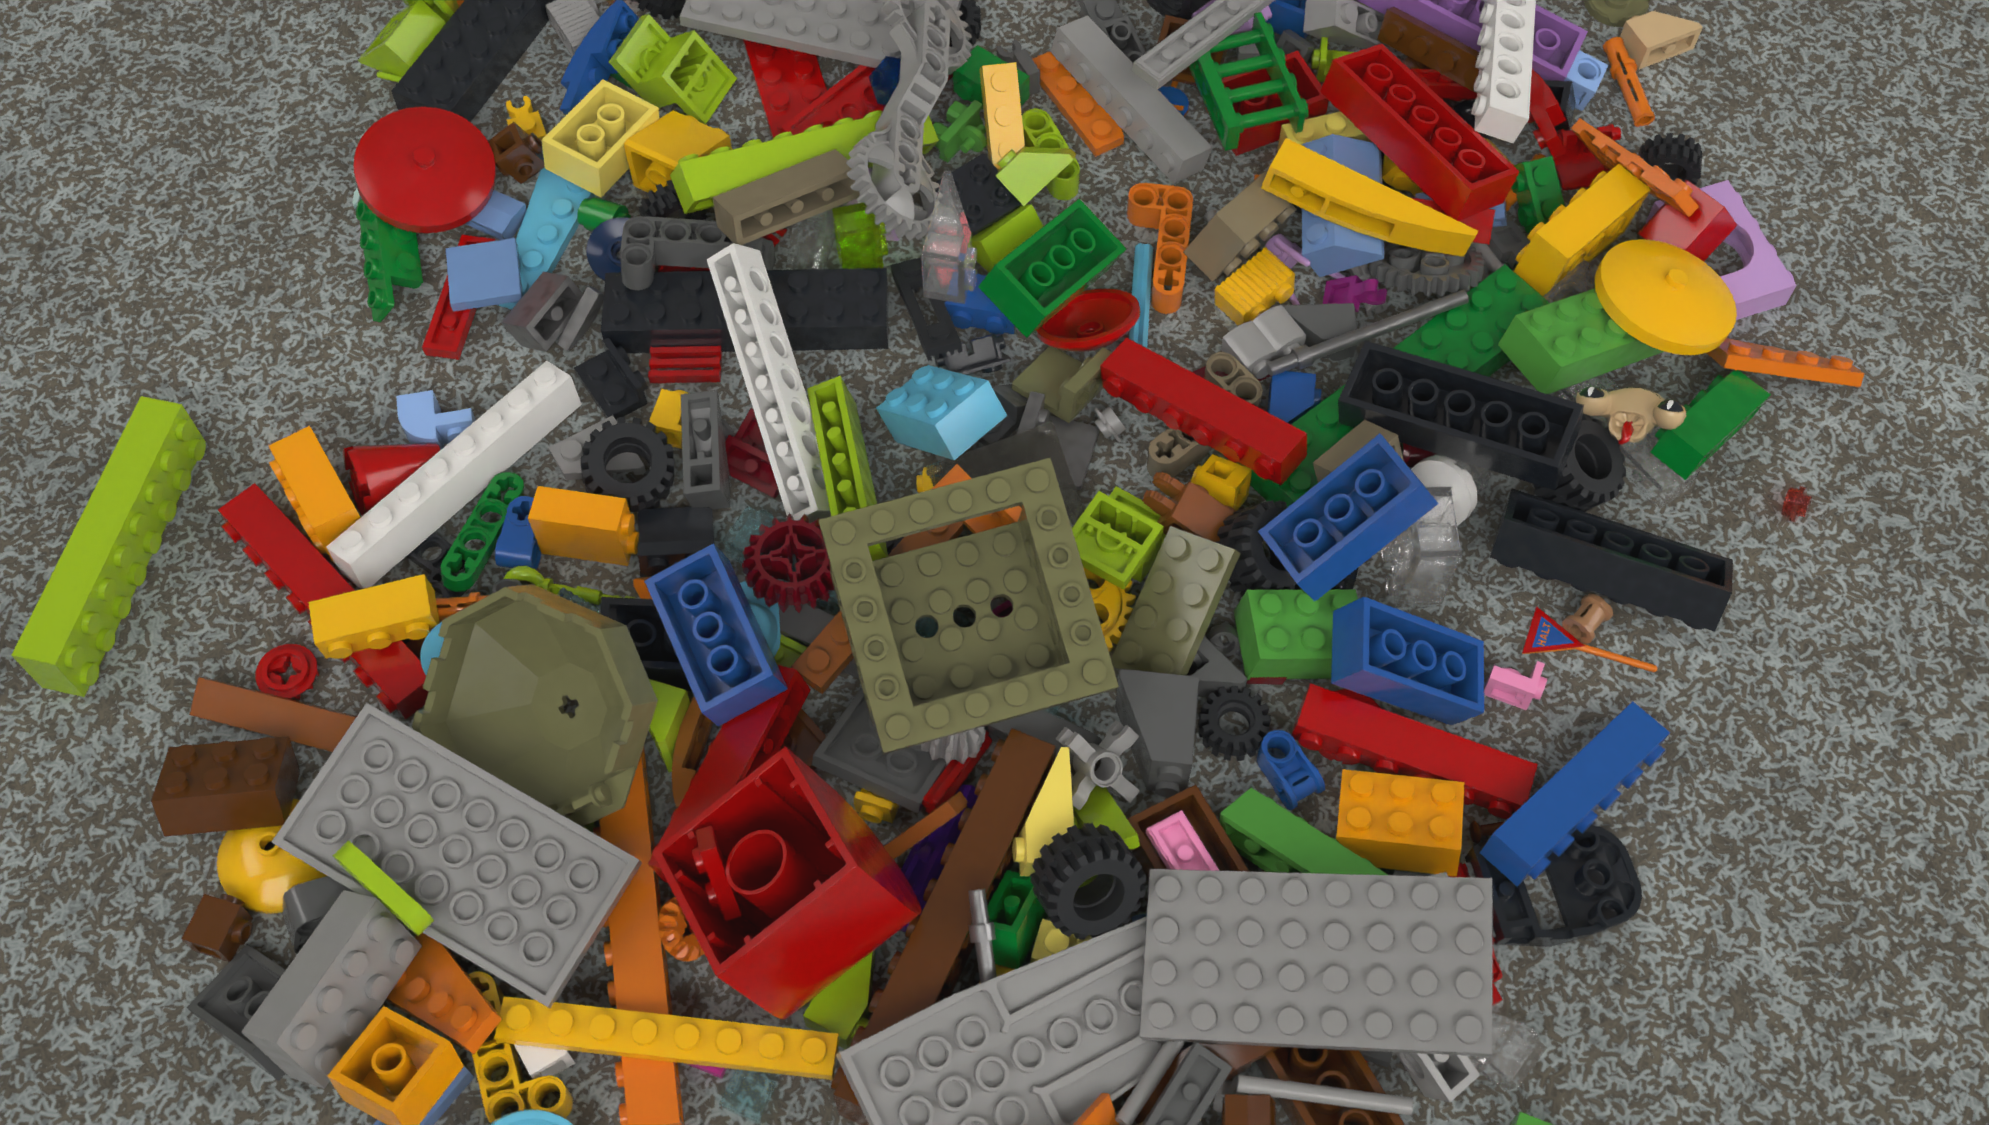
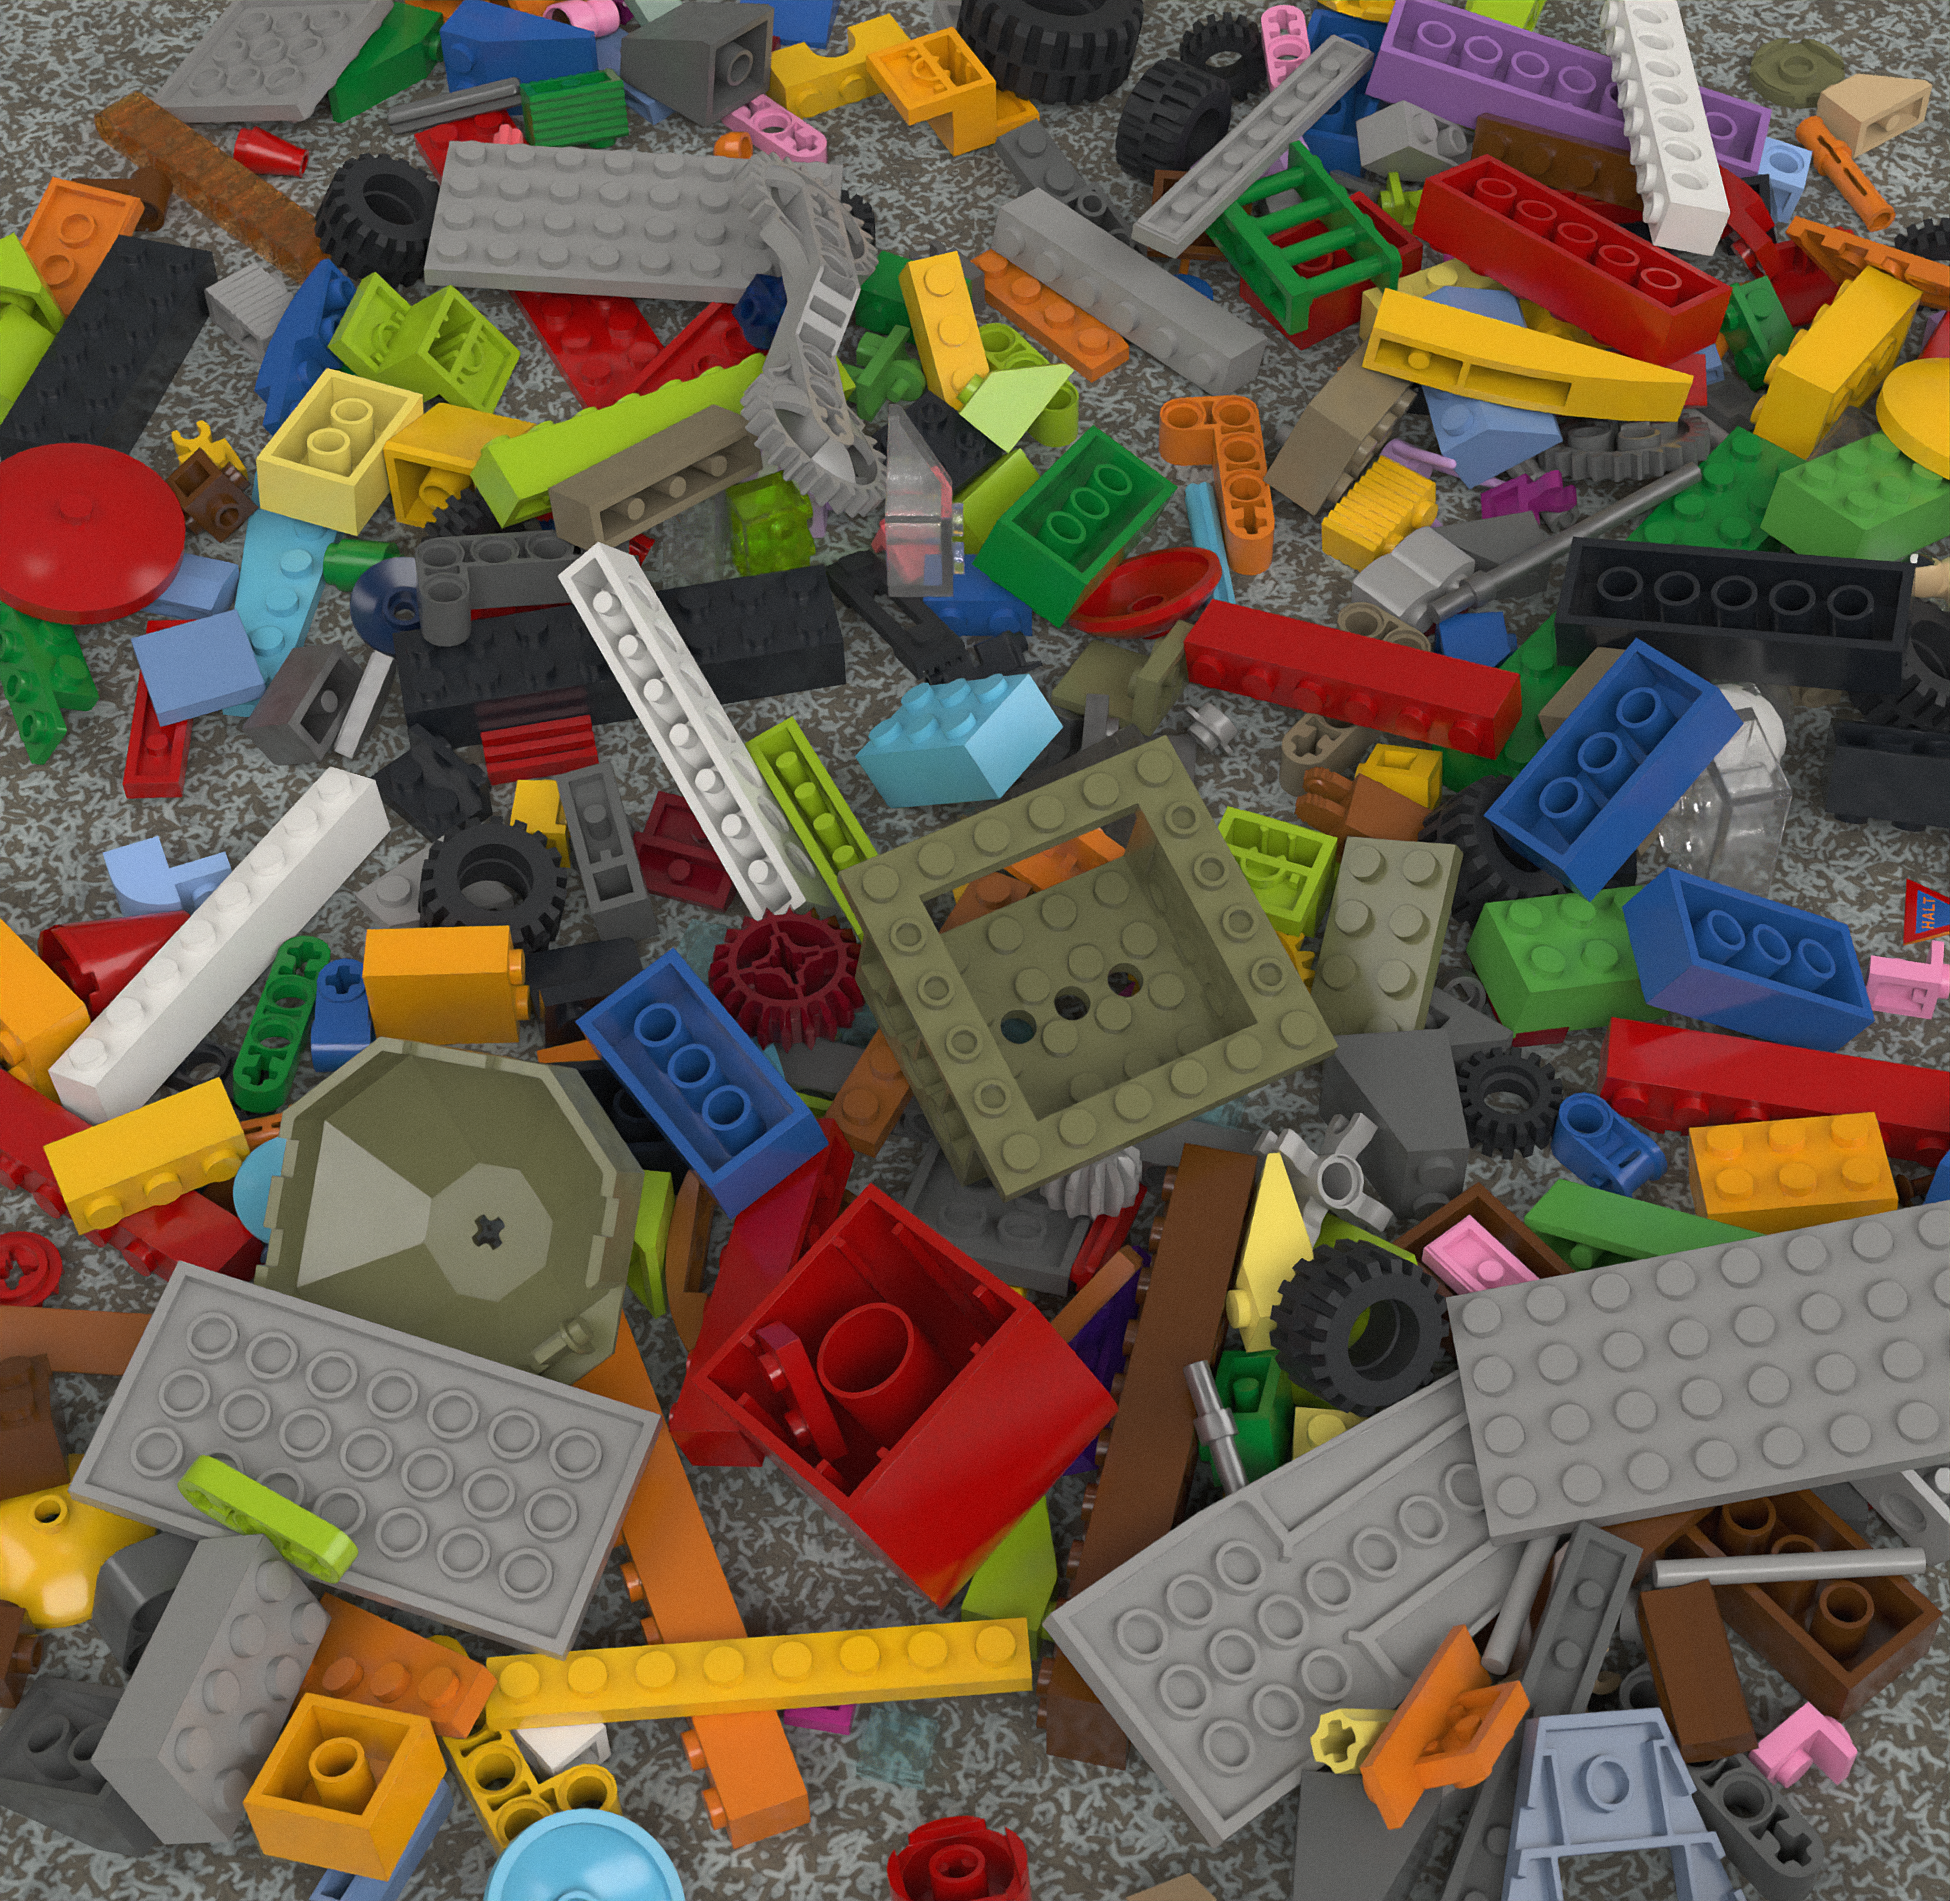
camera: 10 degrees left, 10 degrees down
(672, 927) = (726, 1507): orange gear -> none

